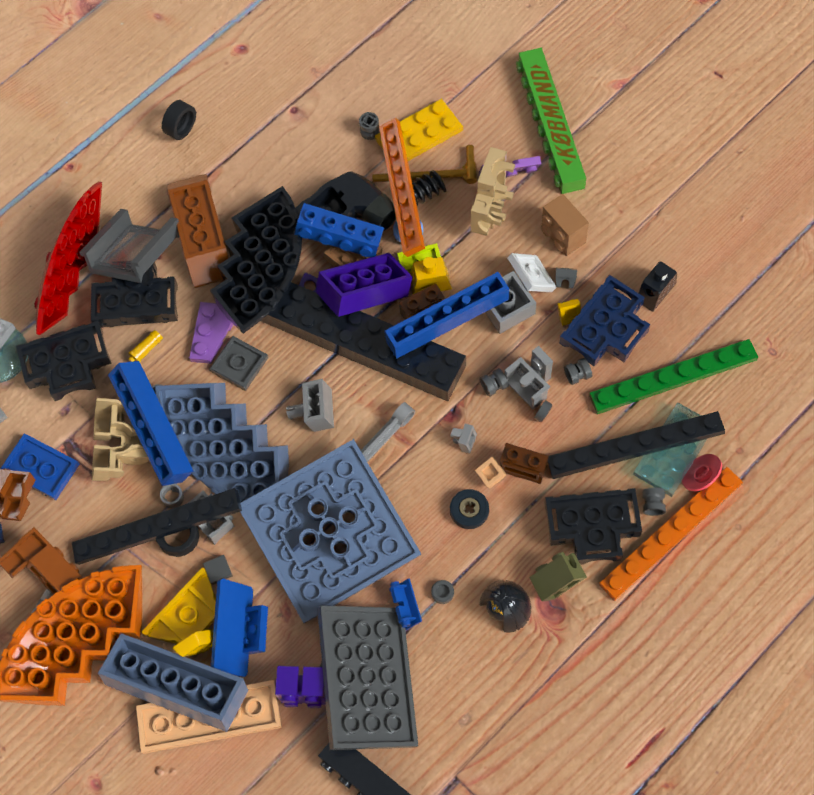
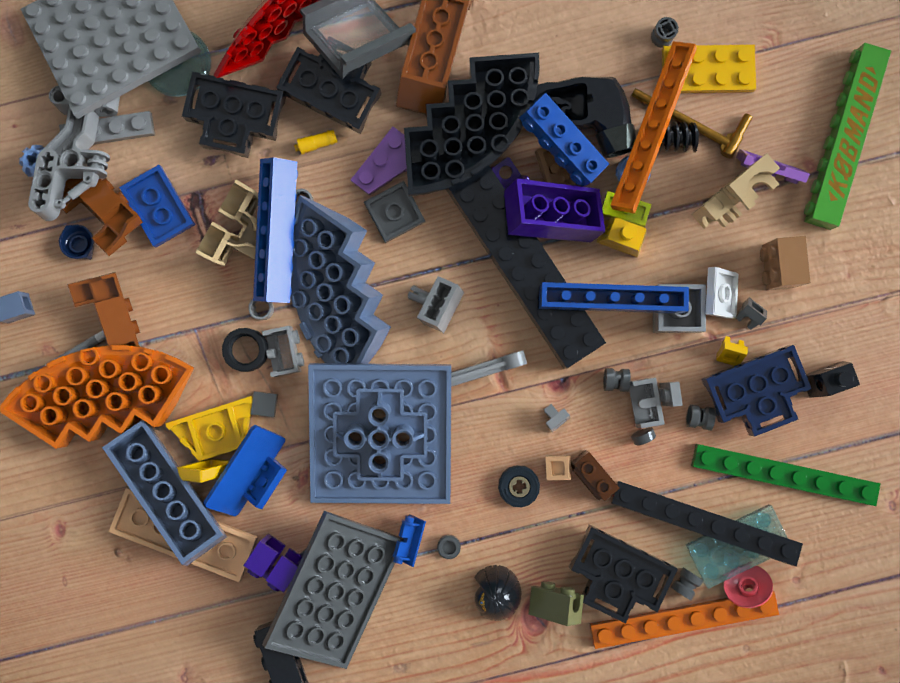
camera: 30 degrees right, 20 degrees up
(156, 526) = (229, 336): black plate -> none
(420, 301) = (598, 262): reddish brown window -> none

